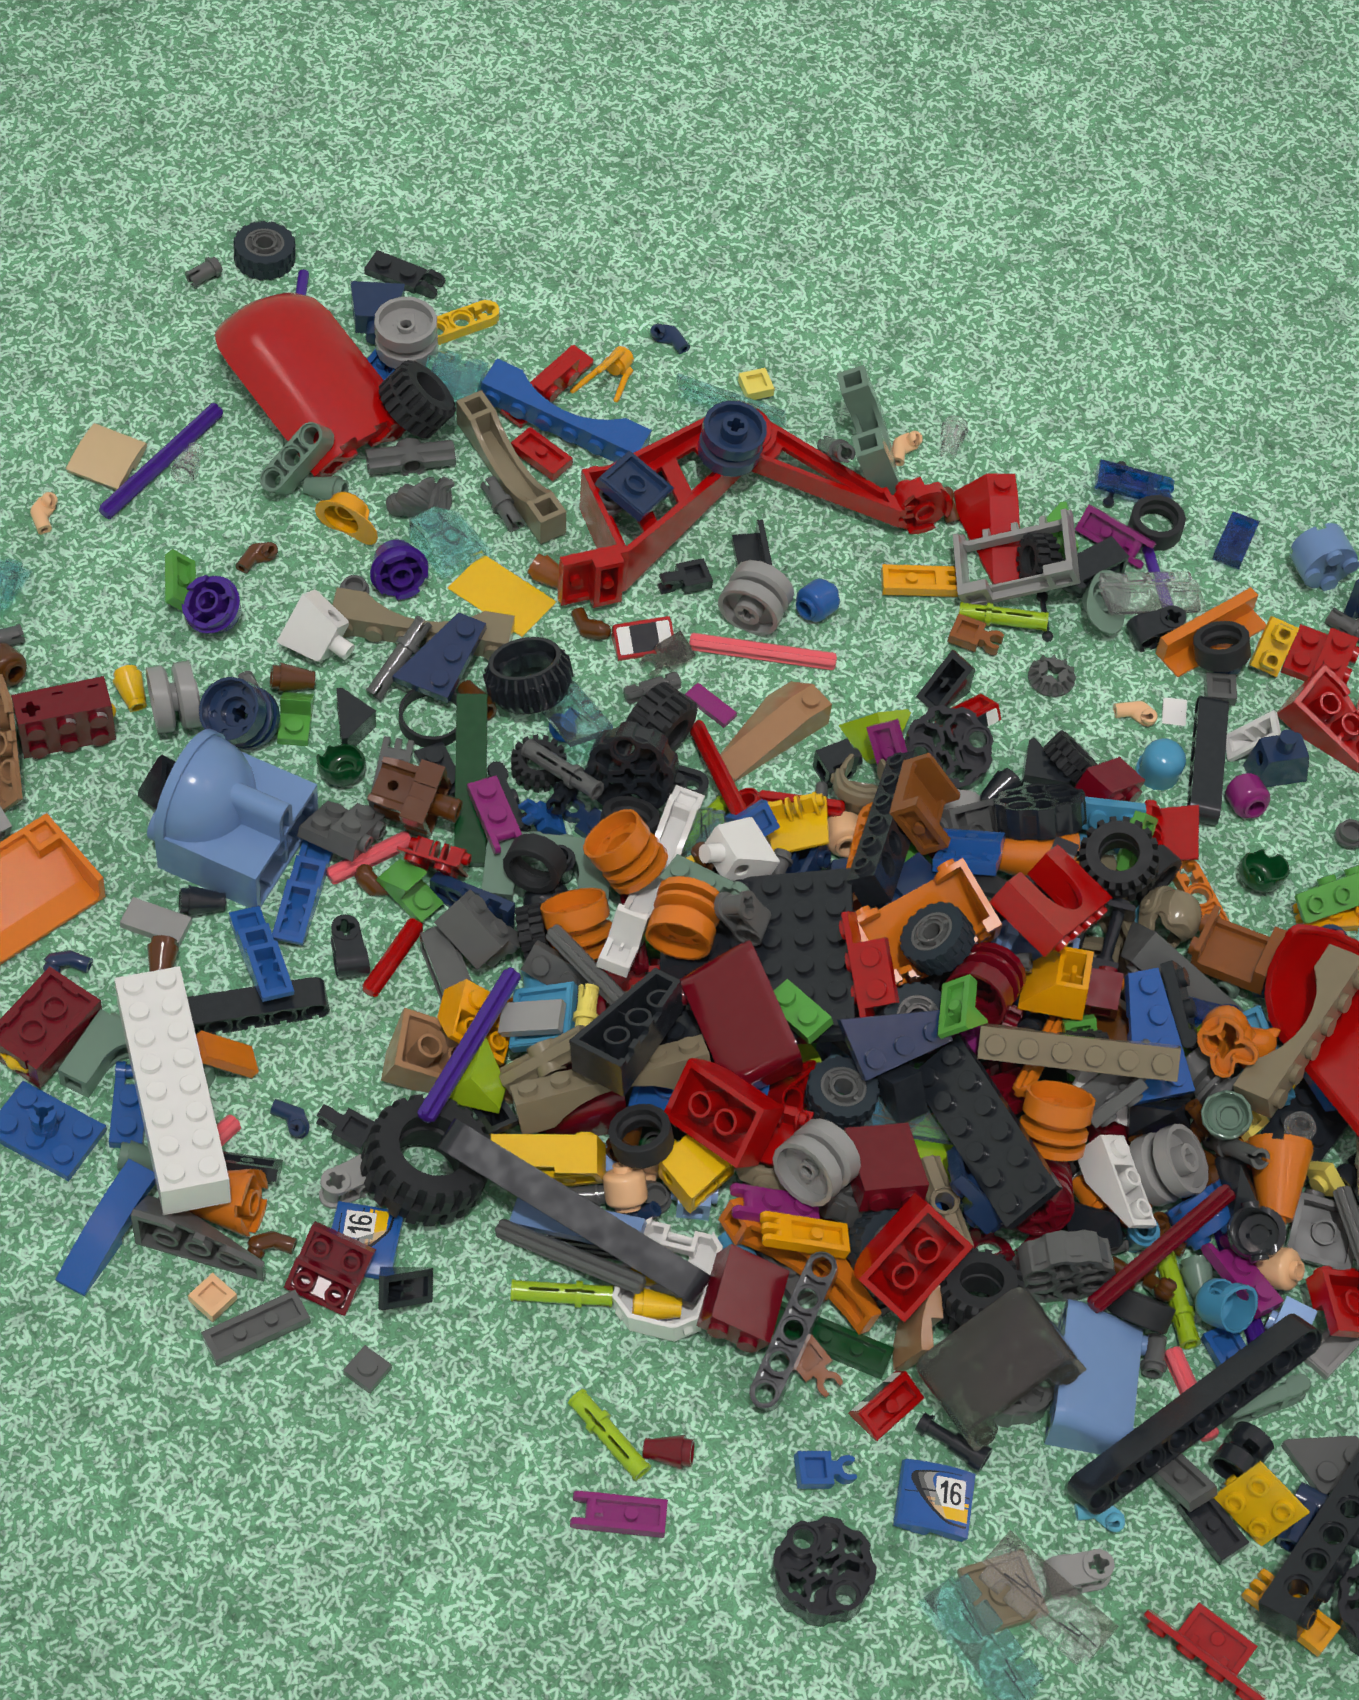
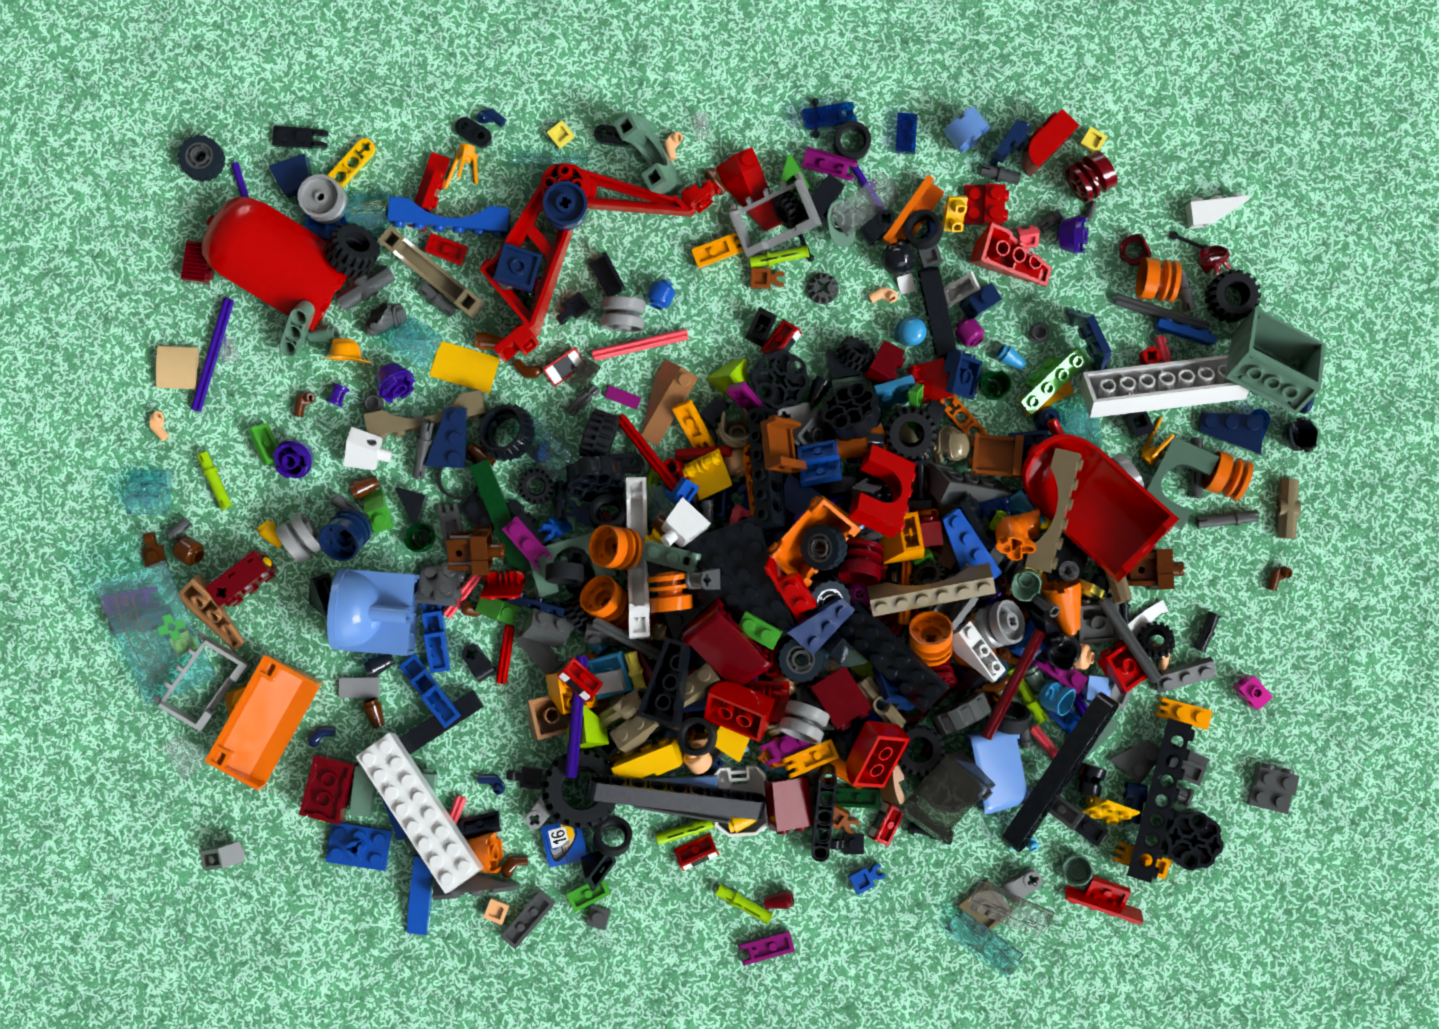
camera: 15 degrees left, 30 degrees up
(85, 590) = (214, 480): none -> lime pin
(196, 356) = (195, 267): none -> dark red brick
(204, 271) = (170, 192): dark grey pin -> none
(227, 1054) = (438, 764): orange tile -> none
(309, 561) = (337, 394): none -> dark purple bush
(330, 1268) = (553, 870): dark red slope -> none
(368, 1326) = (583, 896): none -> bright green plate
(441, 1265) = (609, 850): none -> black tyre
(497, 992) = (579, 679): none -> red slope
(564, 1335) = (696, 852): none -> red slope
(588, 785) = (560, 497): dark grey pin -> none
(638, 343) = (472, 132): none -> black plate
(799, 758) = (693, 424): none -> light orange hinge
(817, 1412) = (850, 843): none -> black plate
(825, 410) = (609, 140): none -> black beam
(837, 449) = (633, 178): dark grey pin -> none
(854, 1582) = (867, 939): black connector -> none
(934, 1499) = (931, 871): blue slope -> none
(958, 1007) = (853, 598): bright green slope -> none
(1160, 1289) = (1020, 699): reddish brown arm -> none
(1174, 669) = (898, 257): none -> black cap
(1178, 1572) = (1081, 873): none -> sand green hair
(1220, 834) = (963, 372): none -> dark blue plate
(1298, 847) = (1010, 357): none -> dark azure cone

